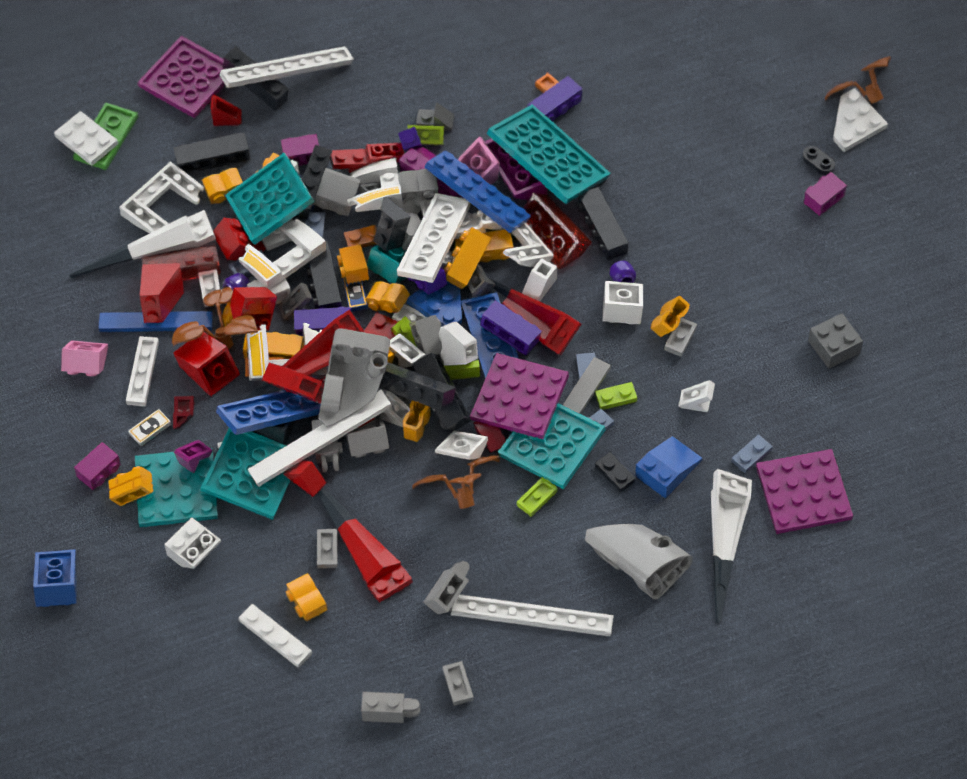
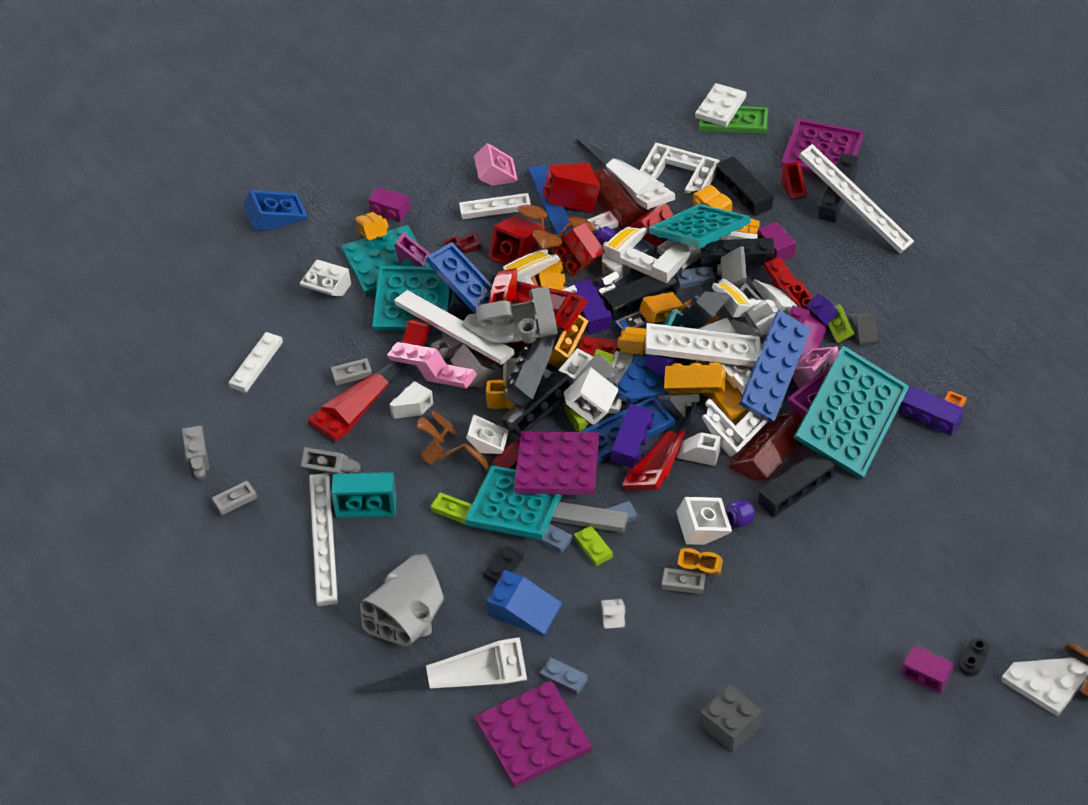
camera: 75 degrees right, 10 degrees down
(149, 427) = (440, 227): tile -> none
(306, 597) = (296, 370): light orange brick -> none
(355, 472) = (431, 365): none -> bright pink bracket
(389, 500) = (411, 401): none -> white slope
(503, 562) = (364, 495): none -> teal brick

